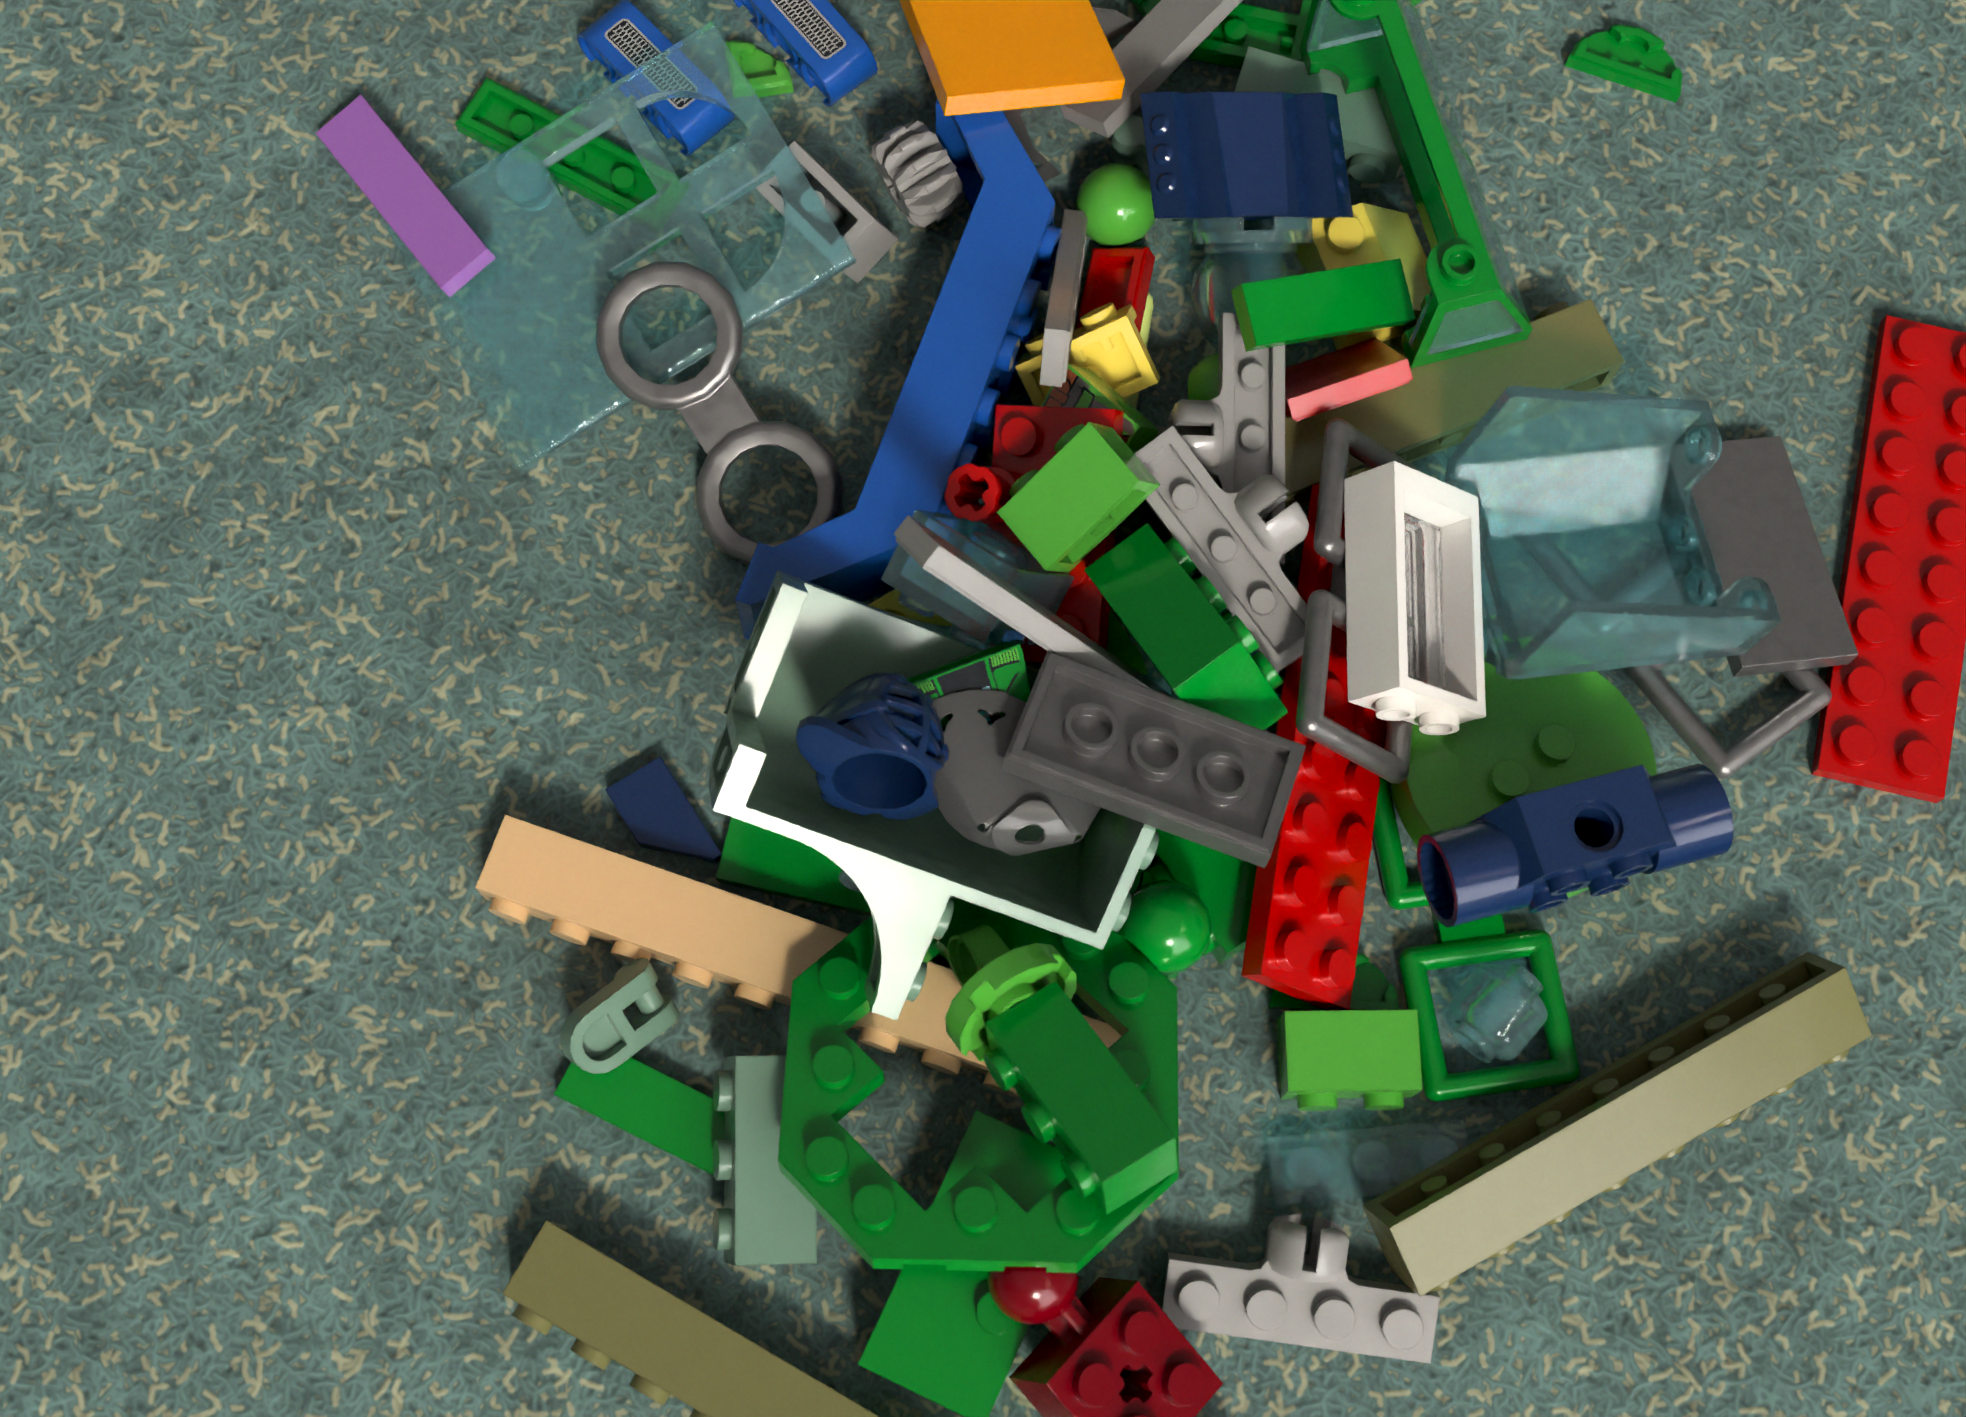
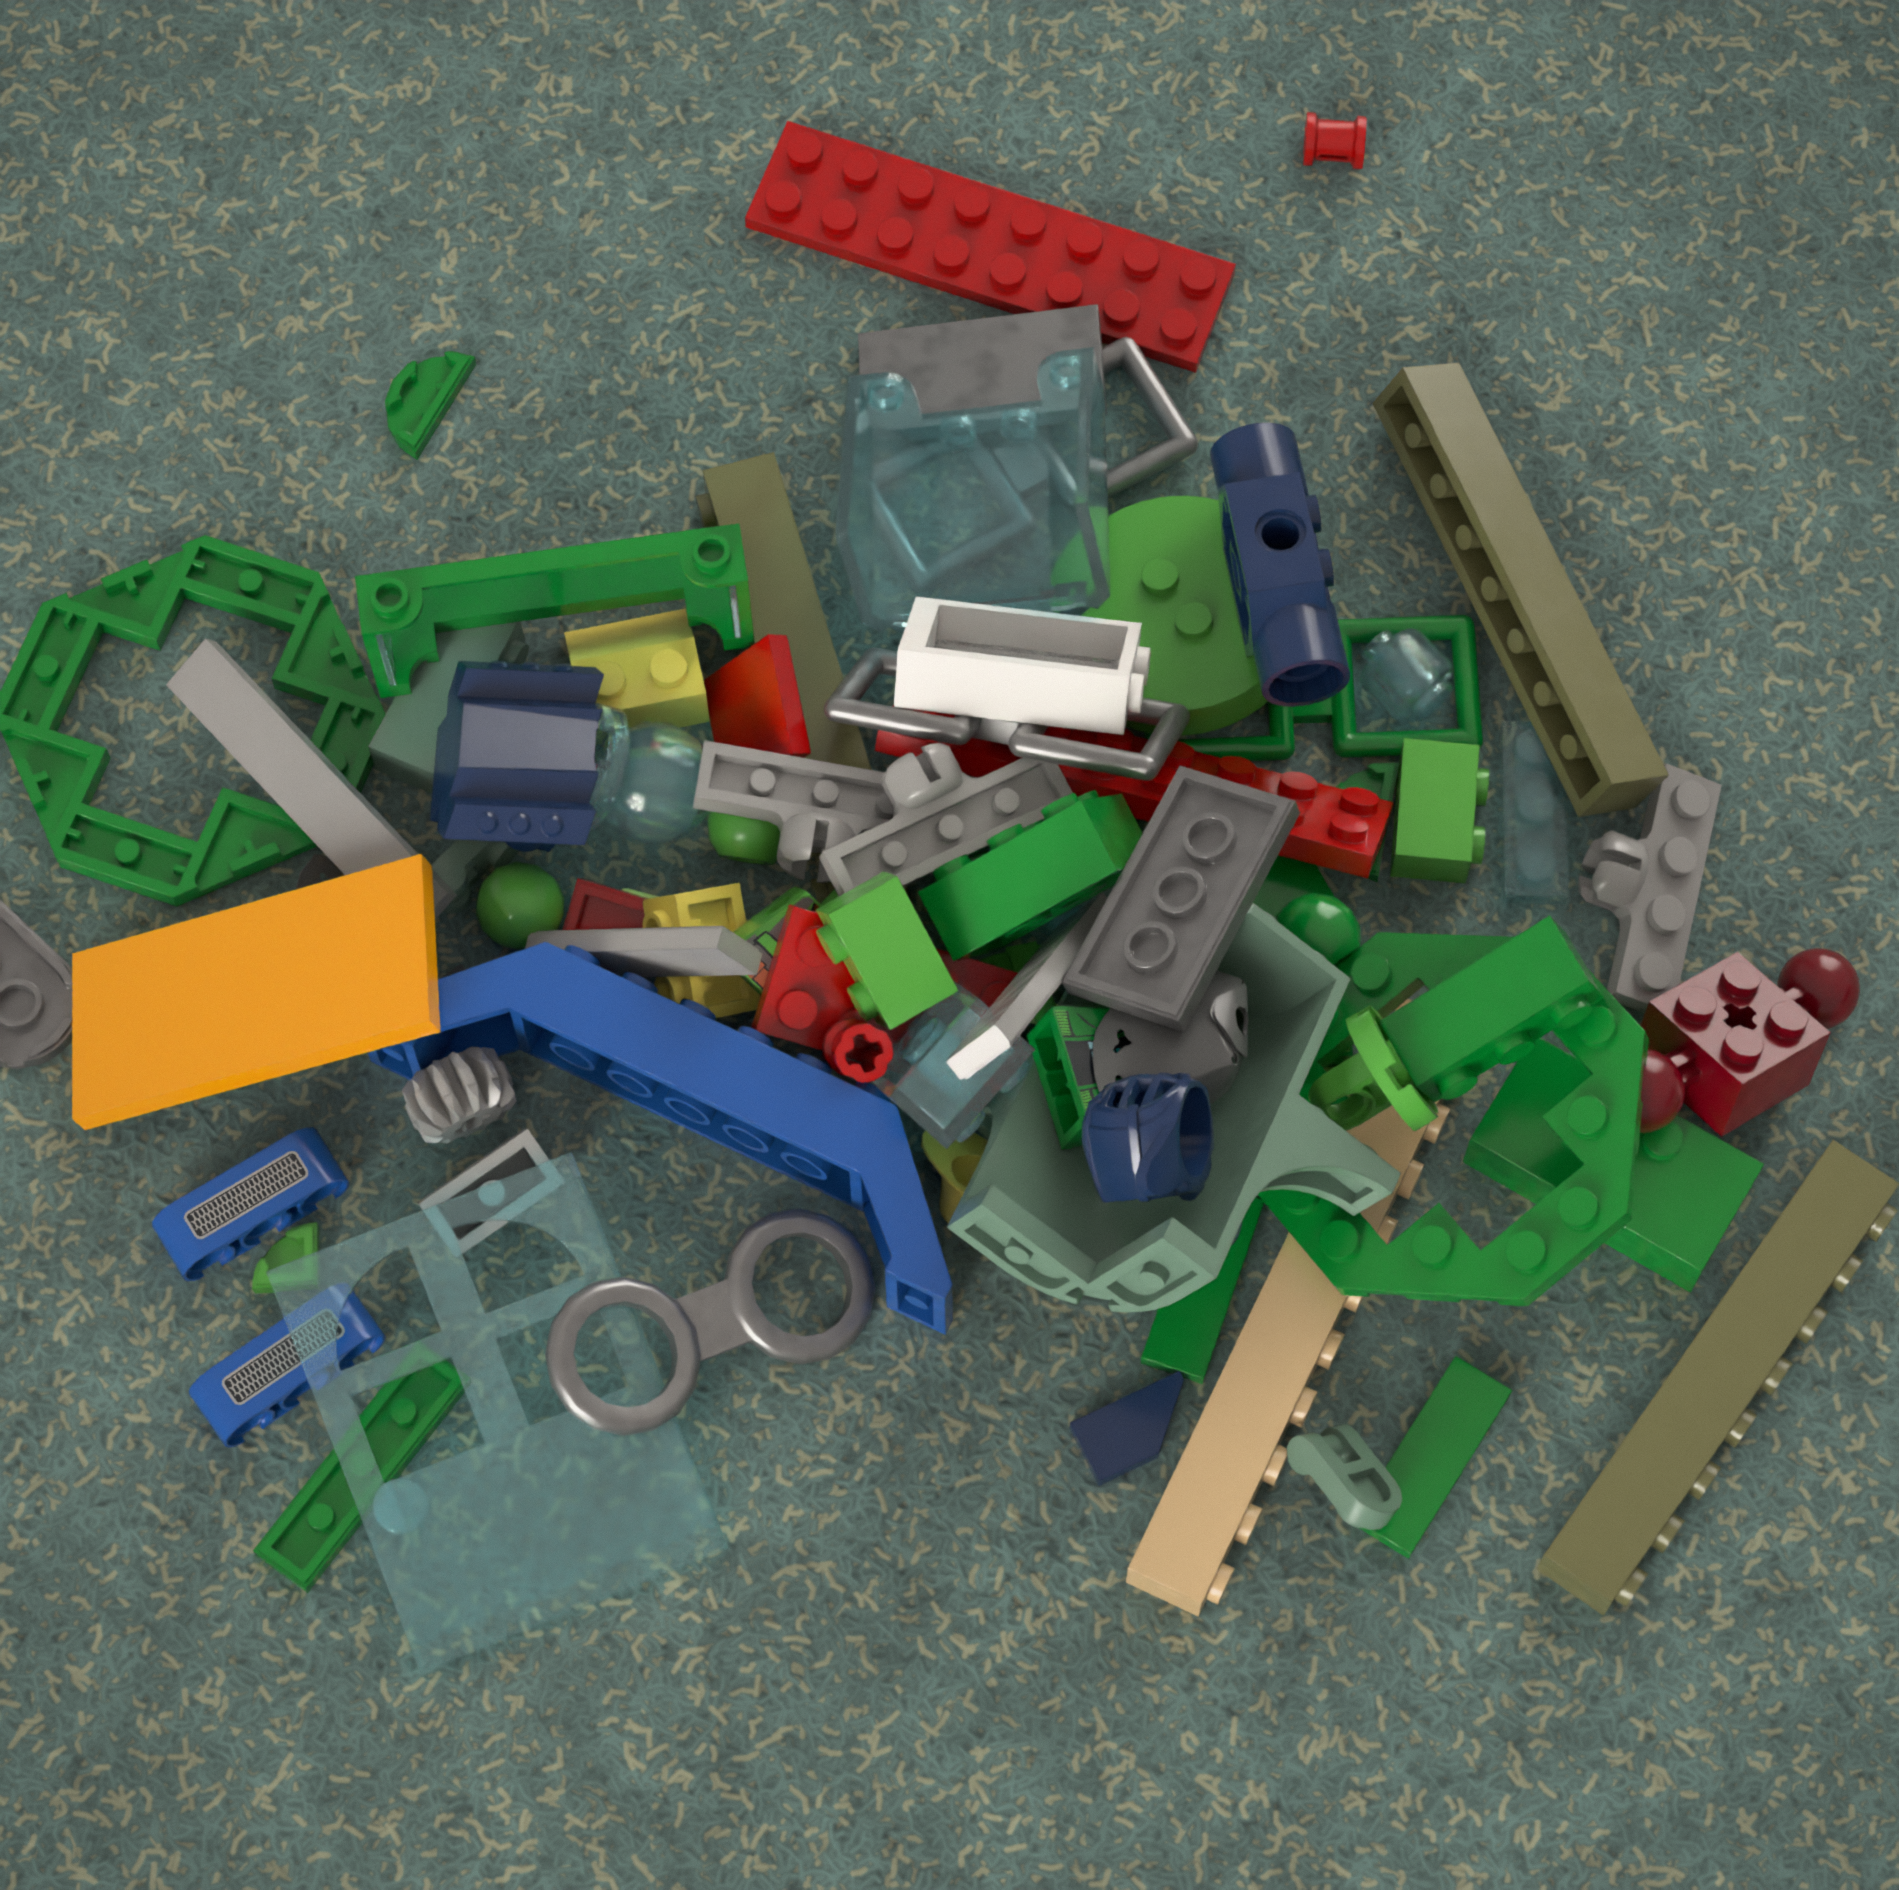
camera: 80 degrees left, 5 degrees down
(405, 196) = (392, 1642): medium lavender tile -> none
(763, 1212) = (1500, 1350): sand green brick -> none
(1322, 304) = (698, 703): green tile -> none

